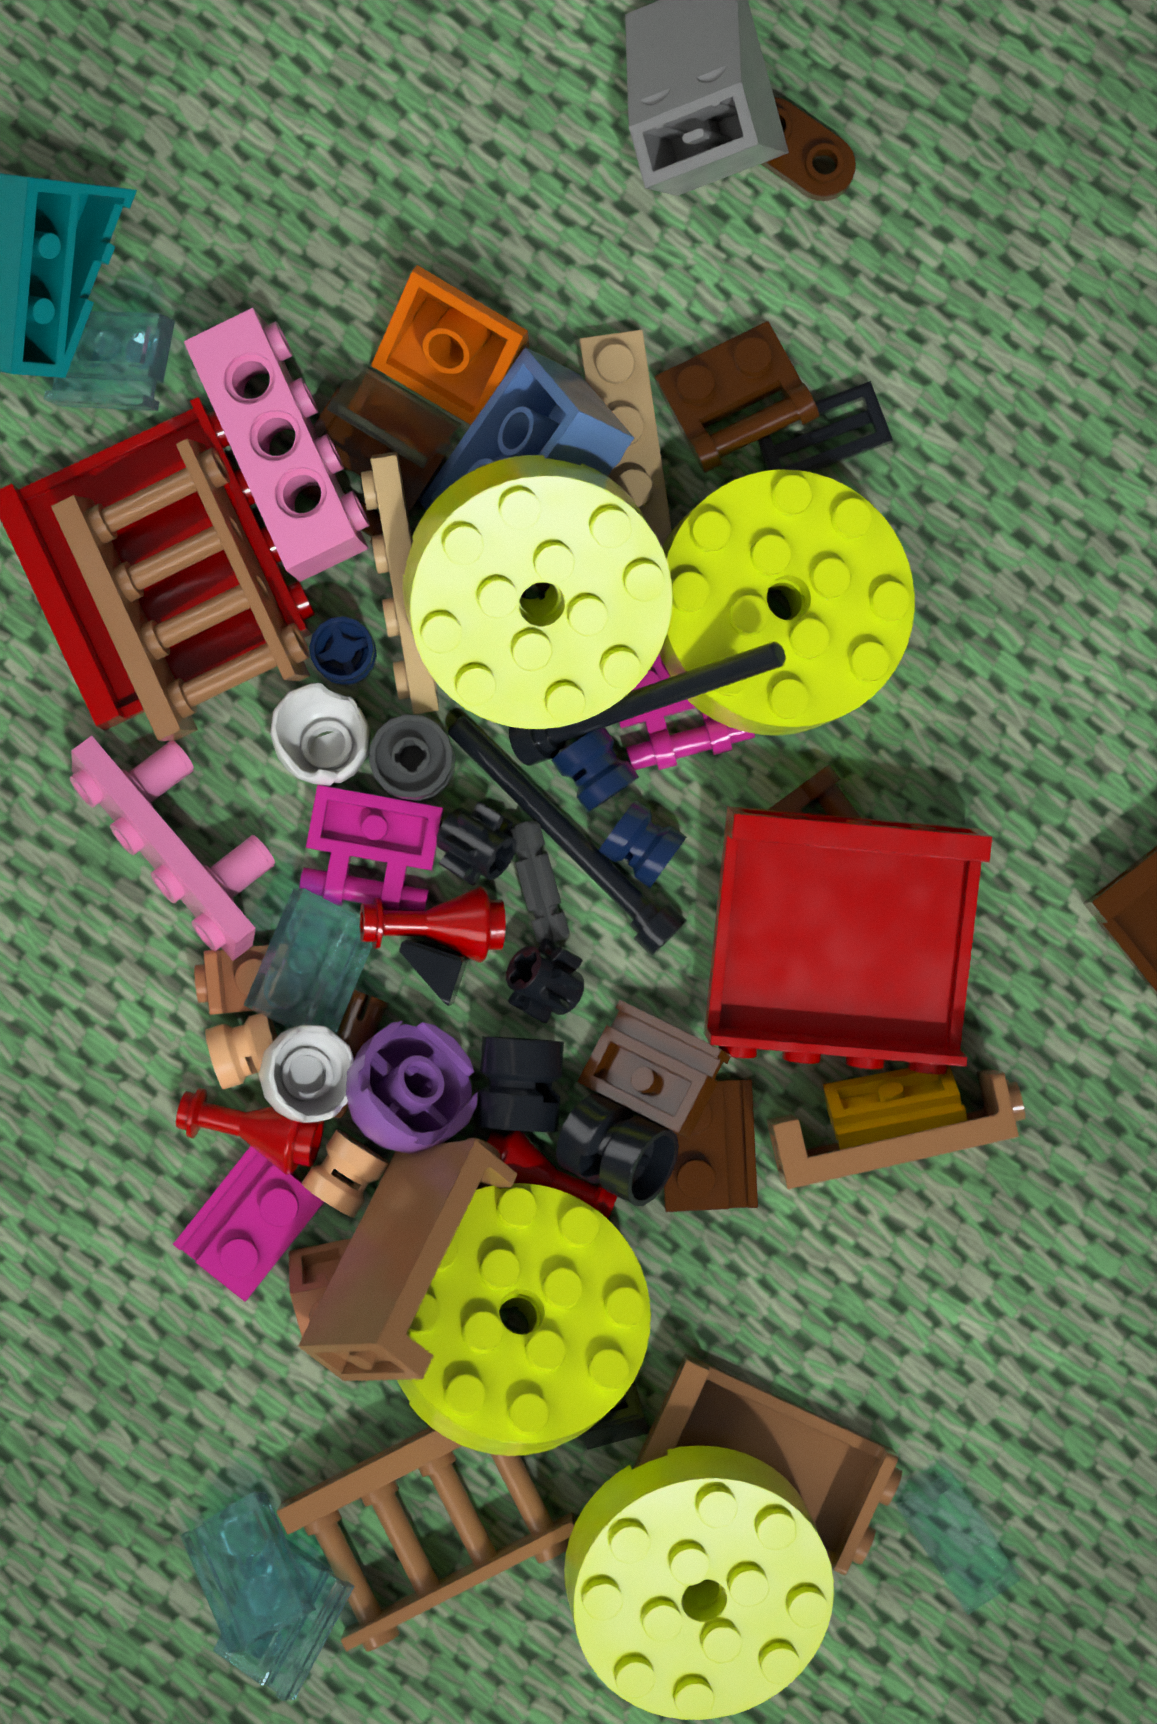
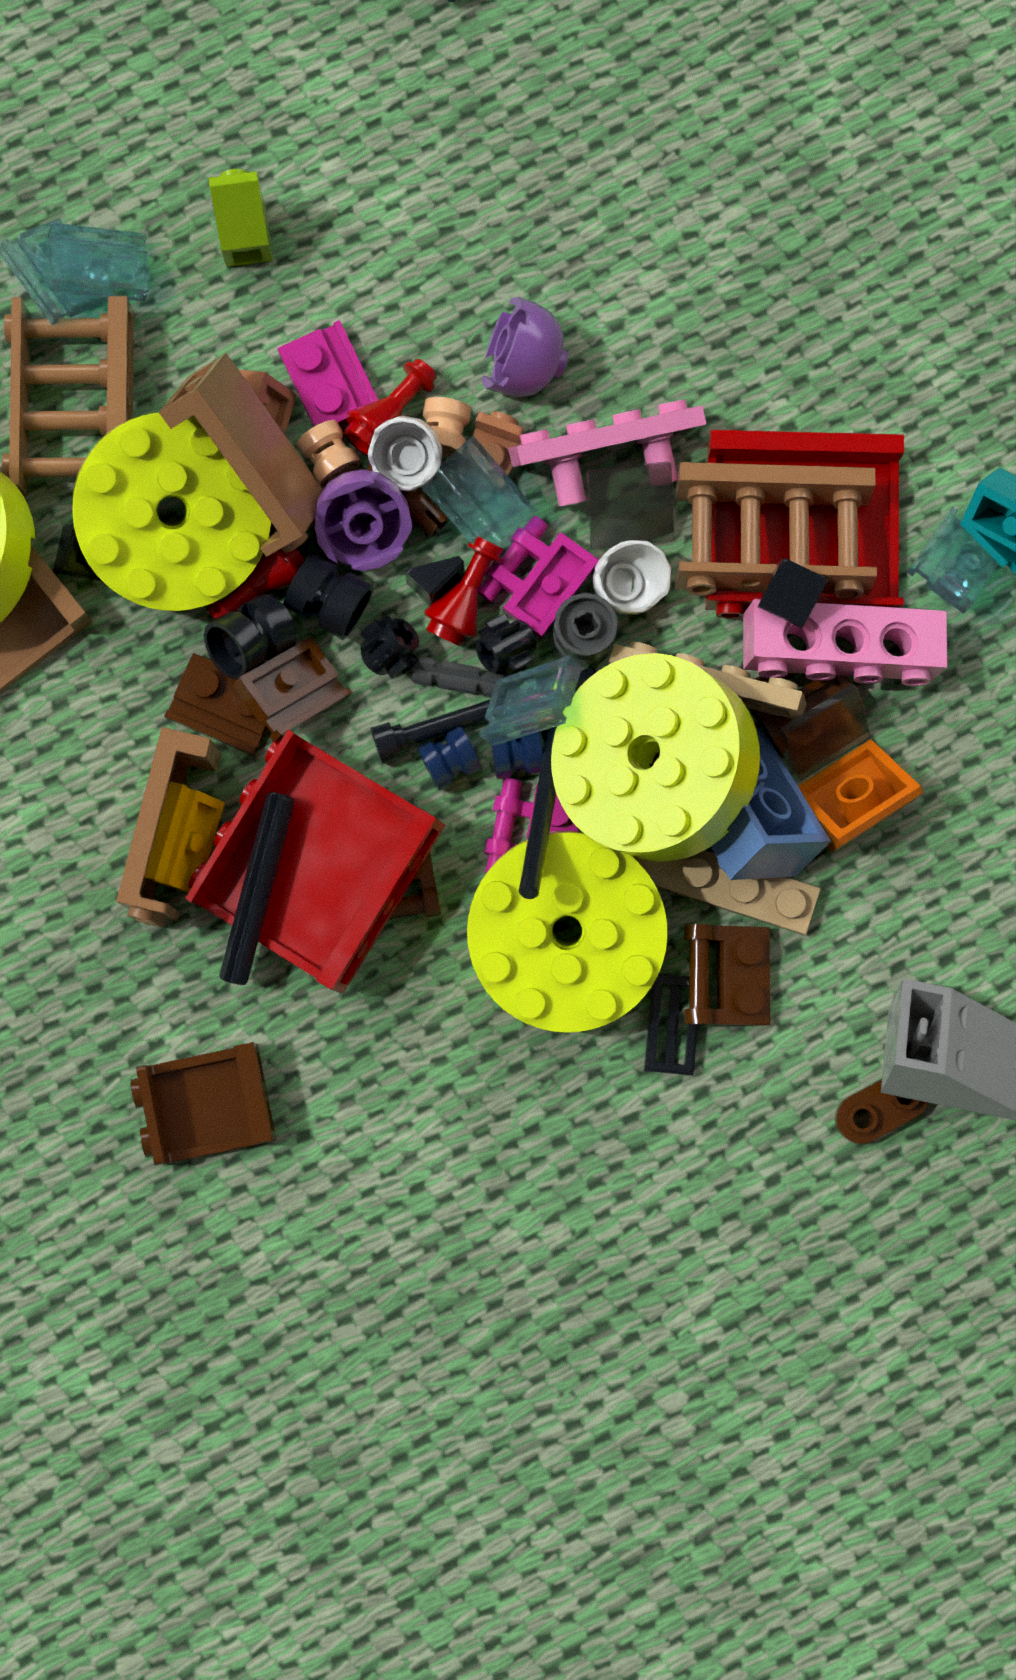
camera: 110 degrees right, 5 degrees down
(103, 997) = (525, 350): none -> medium lavender cylinder
(109, 1424) = (240, 217): none -> lime slope
(232, 779) = (630, 504): none -> clear smoke piece
(259, 526) = (792, 592): none -> black slope
(339, 642) = (682, 612): dark blue wheel -> none
(535, 774) = (531, 701): none -> clear light blue plate
(911, 989) = (256, 888): none -> black axle

